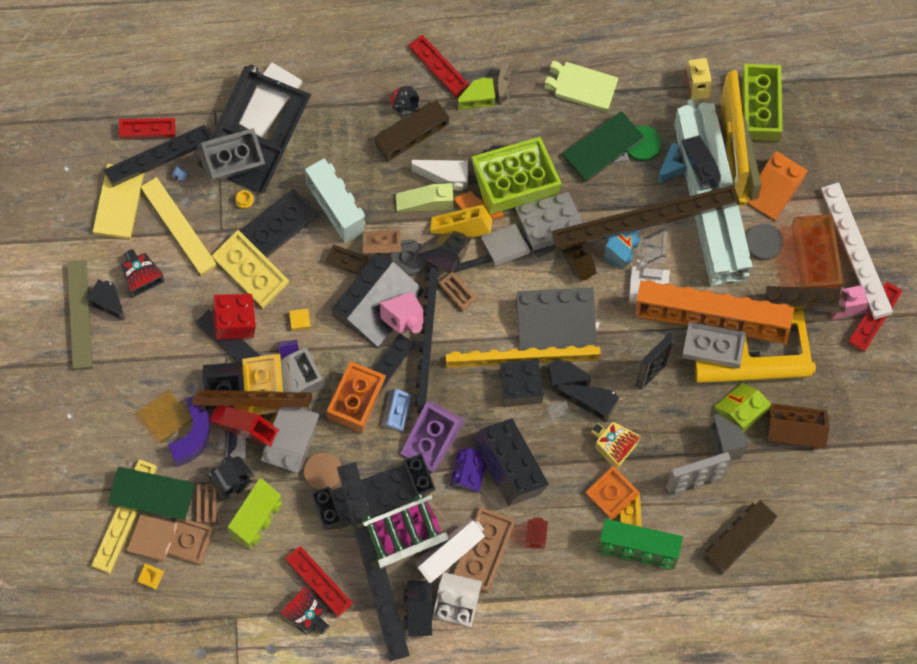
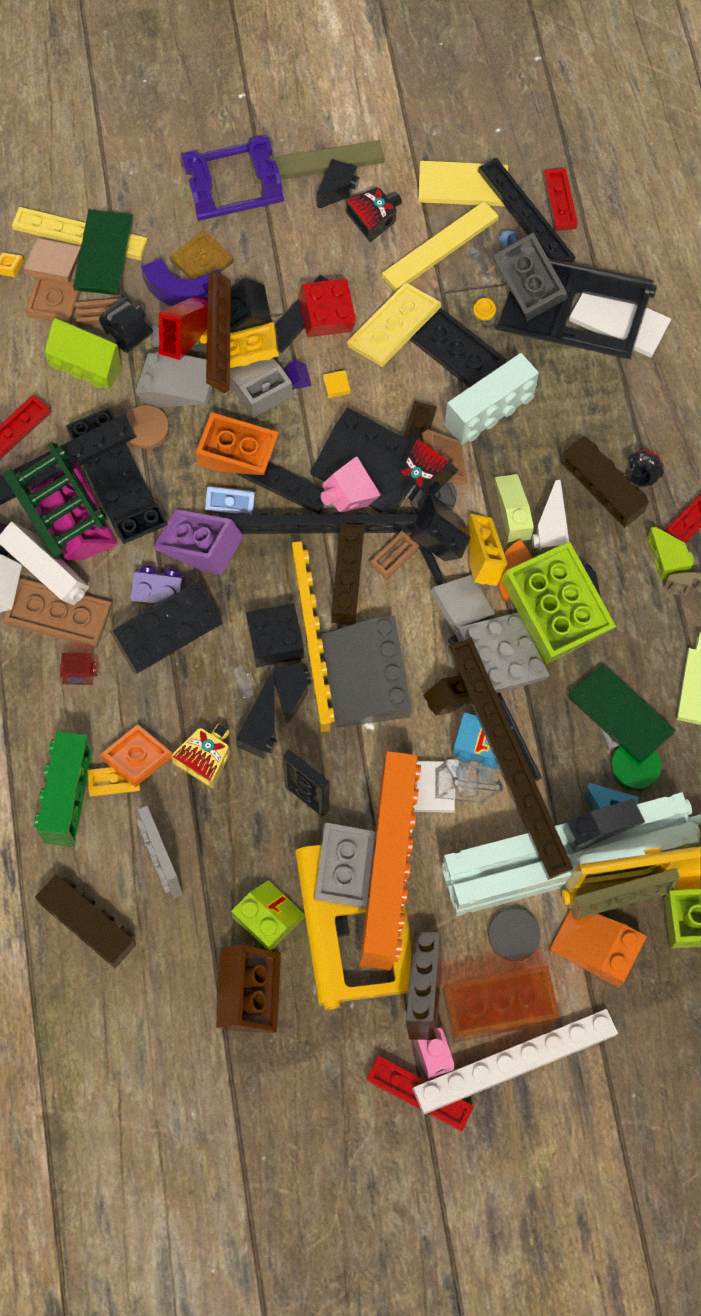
camera: 85 degrees right, 0 degrees up
(97, 404) = (201, 183): none -> dark purple piece
(402, 251) = (425, 471): none -> torso
(473, 324) = (347, 574): none -> dark brown brick
(728, 437) = (215, 892): dark grey slope -> none

